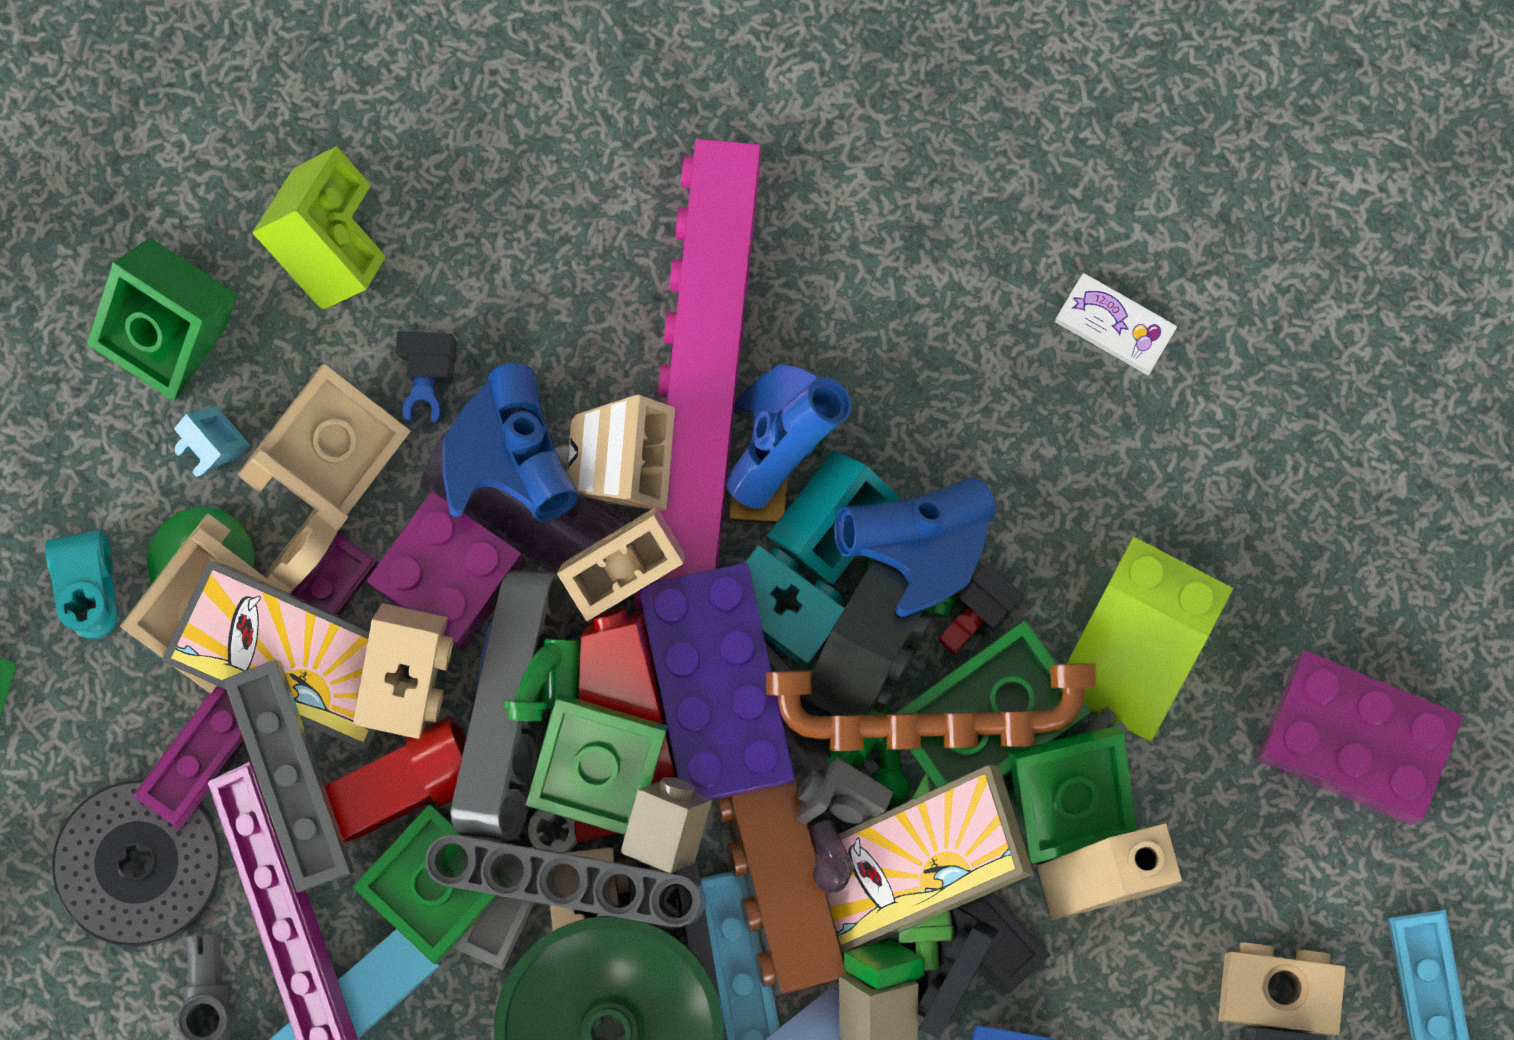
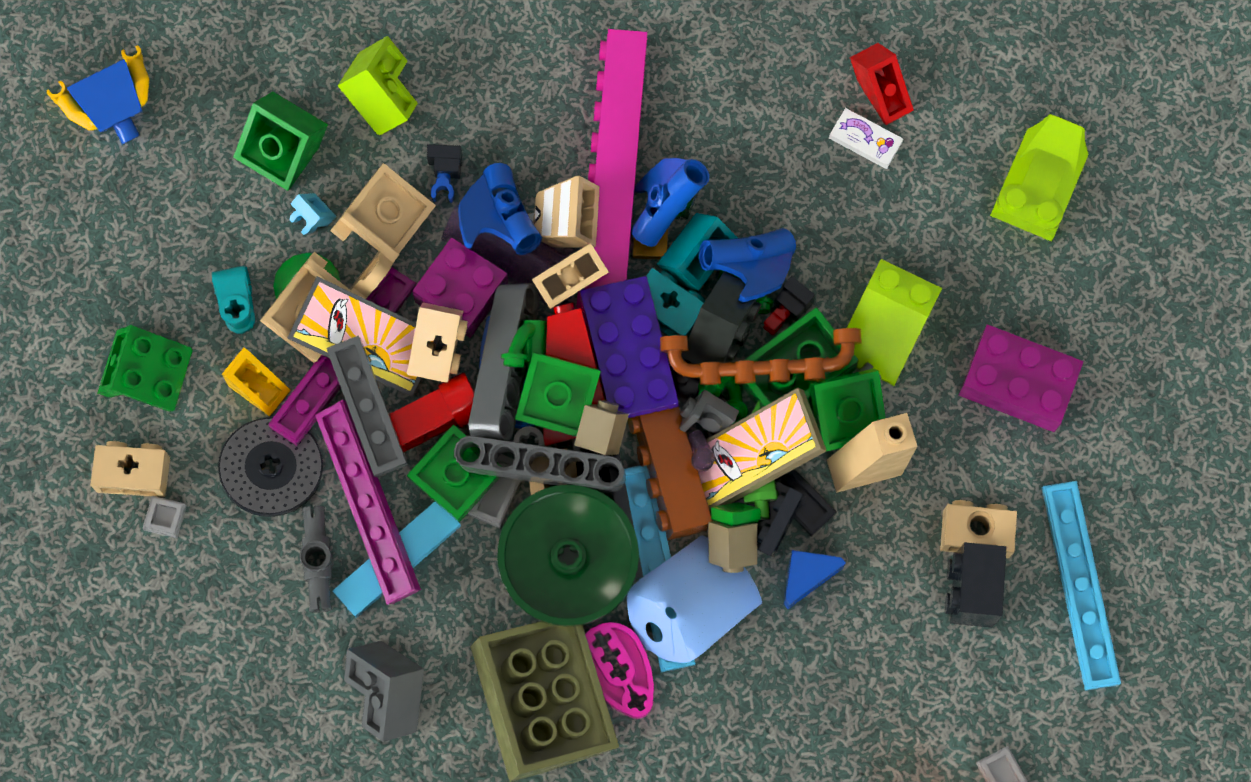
camera: 10 degrees left, 5 degrees down
(113, 725) = (255, 382): none -> yellow slope
(1145, 230) = (882, 82): none -> red slope
(1405, 394) = (1042, 177): none -> lime slope

